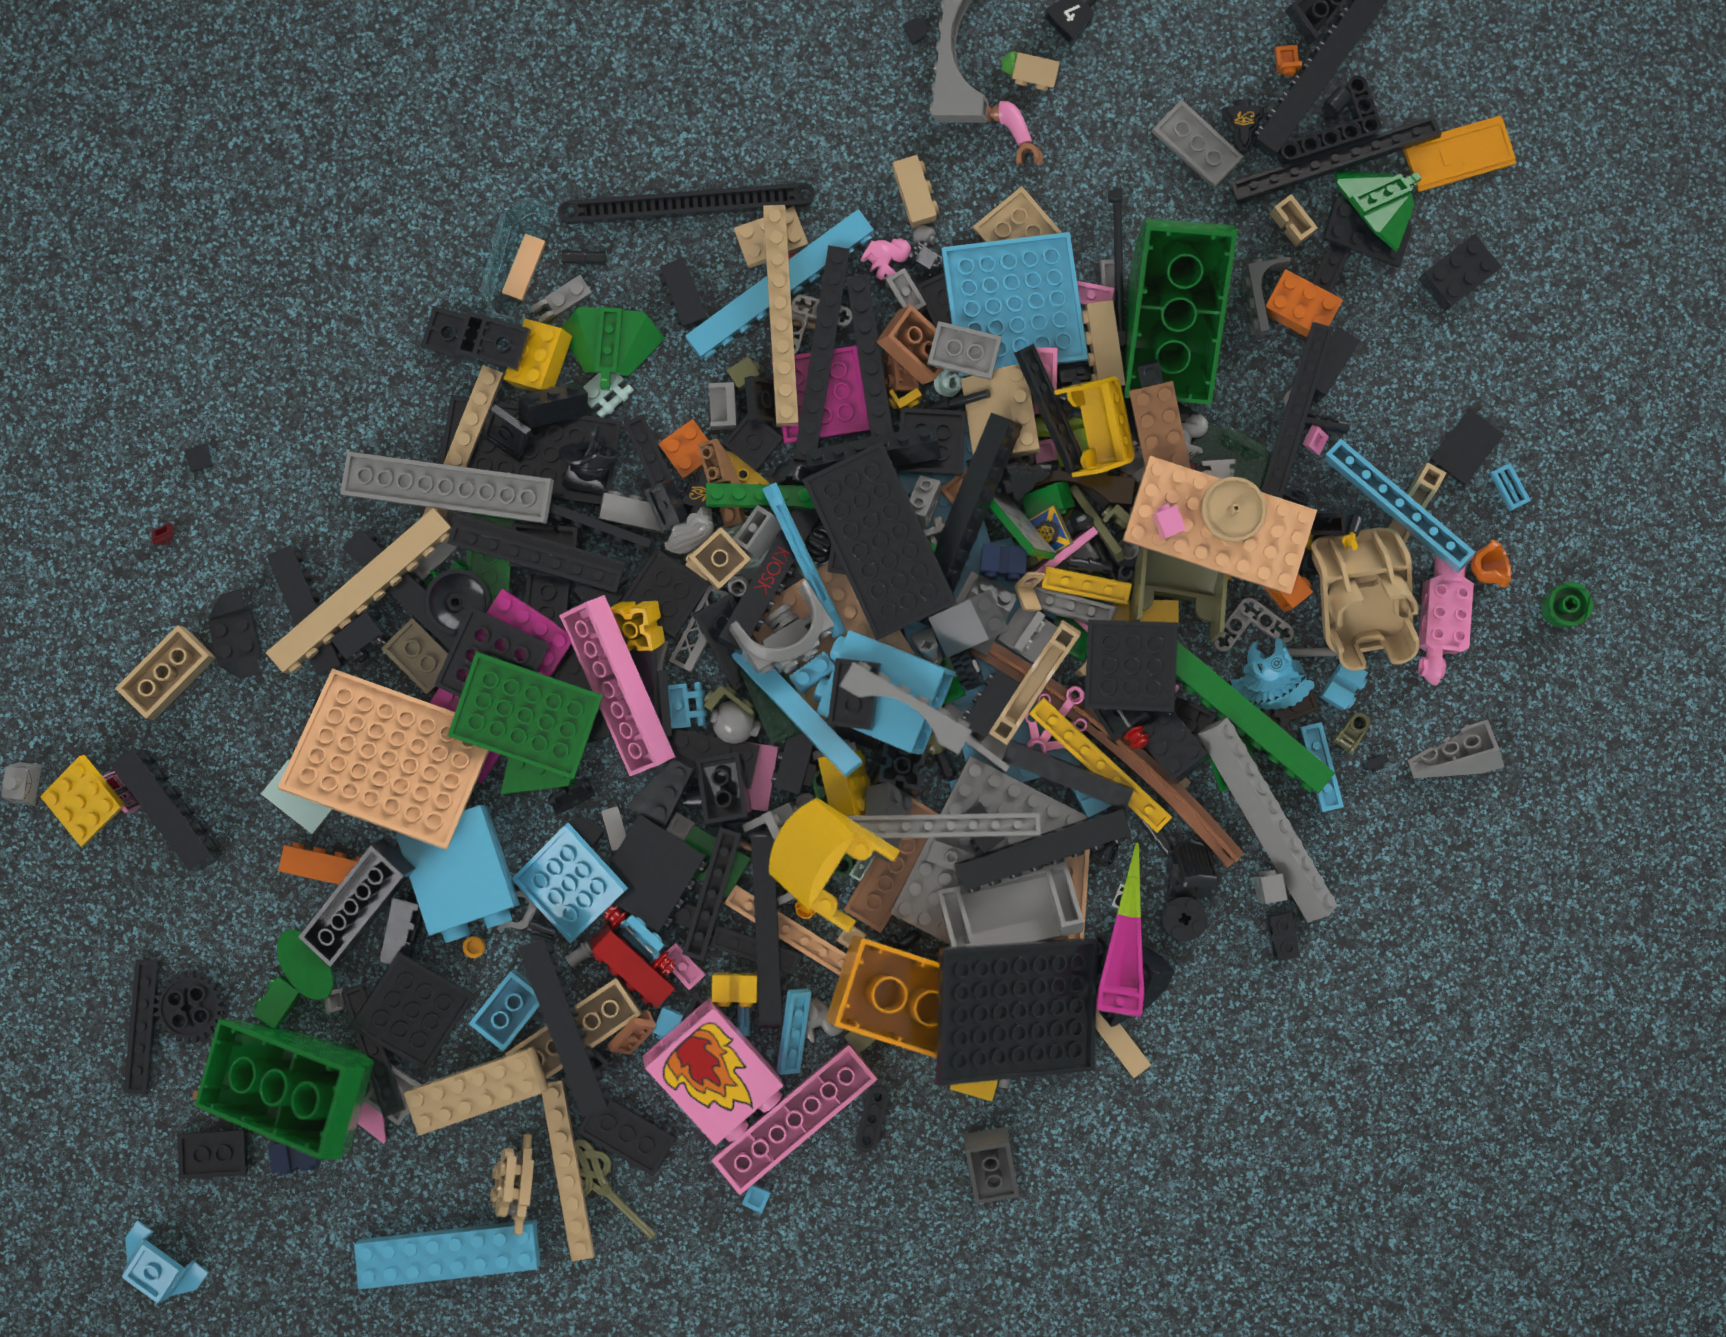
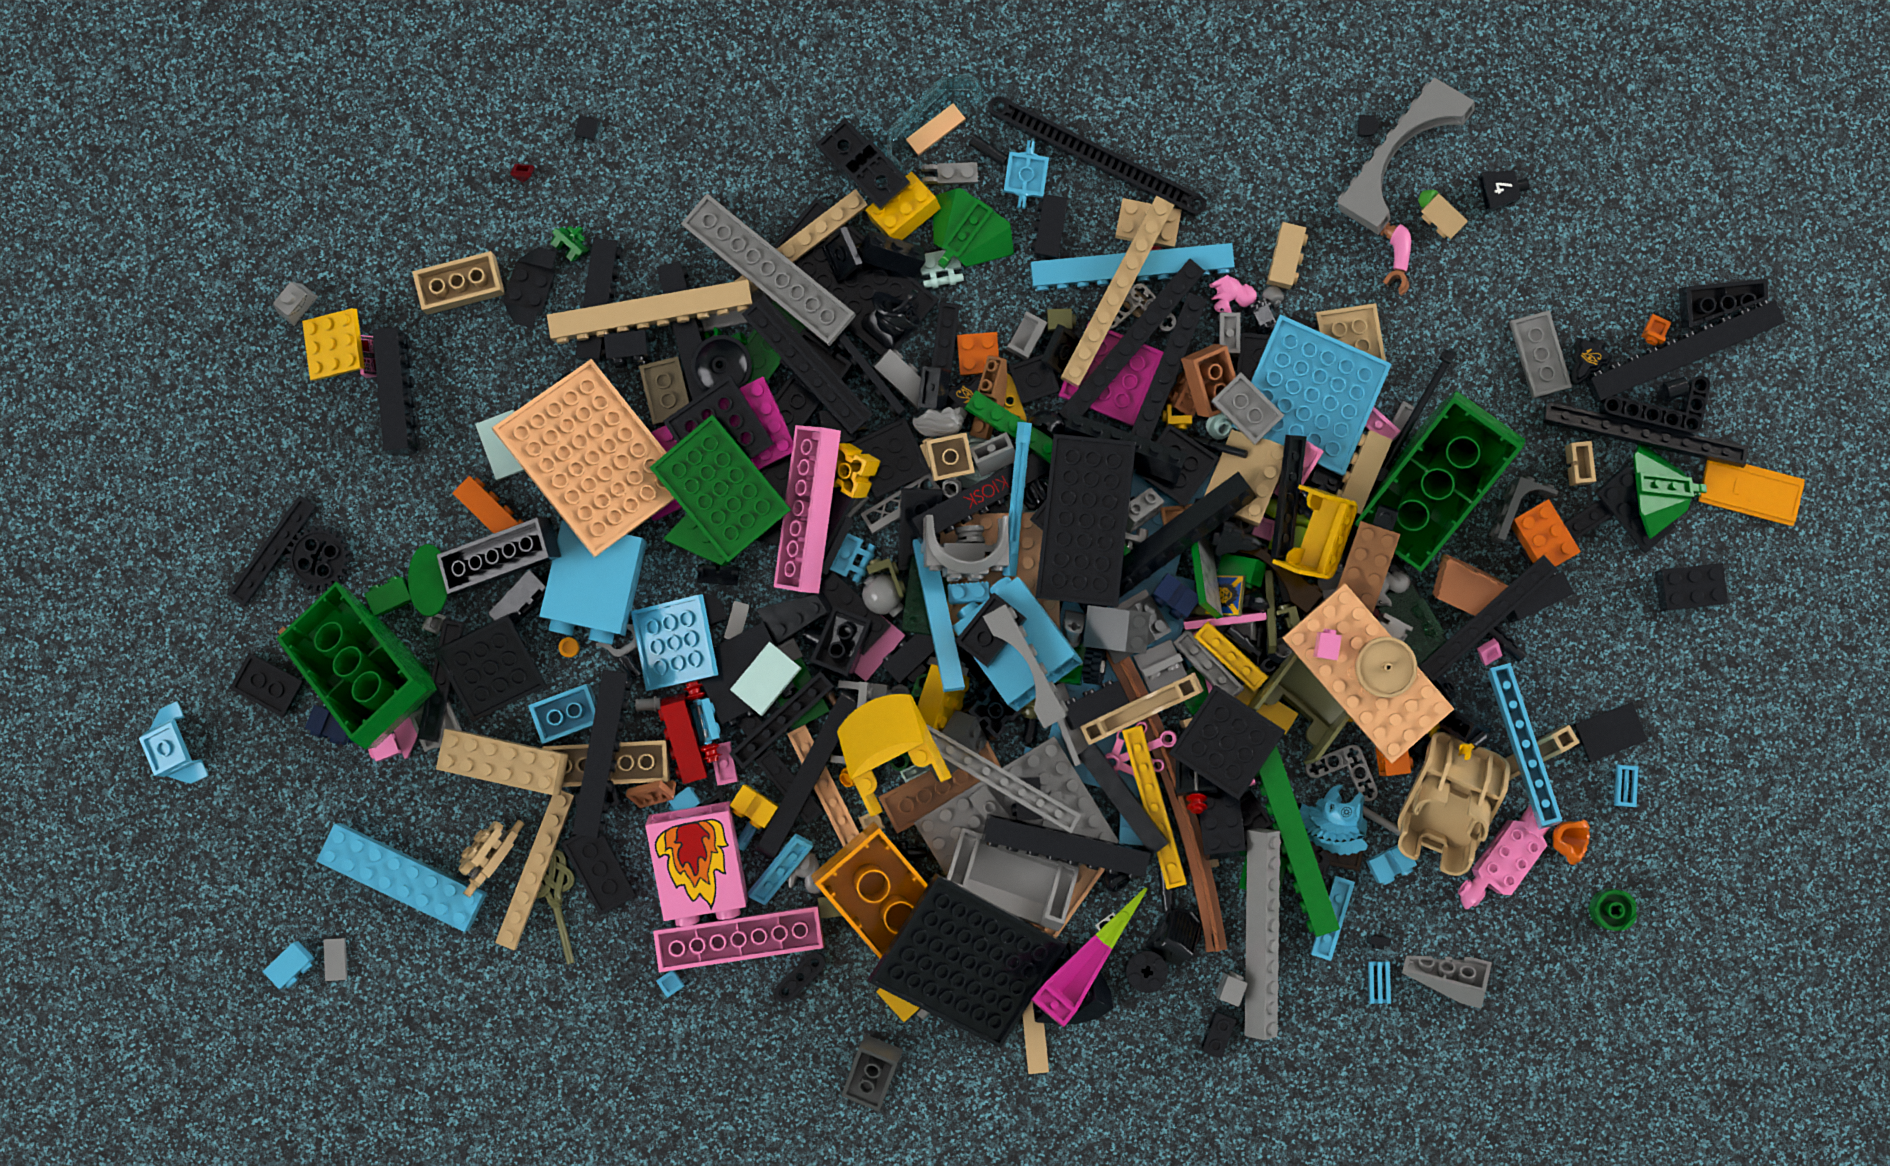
camera: 35 degrees right, 0 degrees up
(238, 572) = (573, 239): none -> green hips
(361, 1145) = (386, 750): none -> bright pink brick
(632, 259) = (1026, 174): none -> medium azure plate
(674, 865) = (765, 678): none -> light aqua tile
(1026, 592) = (1179, 633): tan bracket -> none
(1258, 393) = (1465, 585): none -> nougat piece
(1350, 733) = (1373, 906): olive piece -> none
(1408, 815) = (1379, 964): none -> medium azure tile

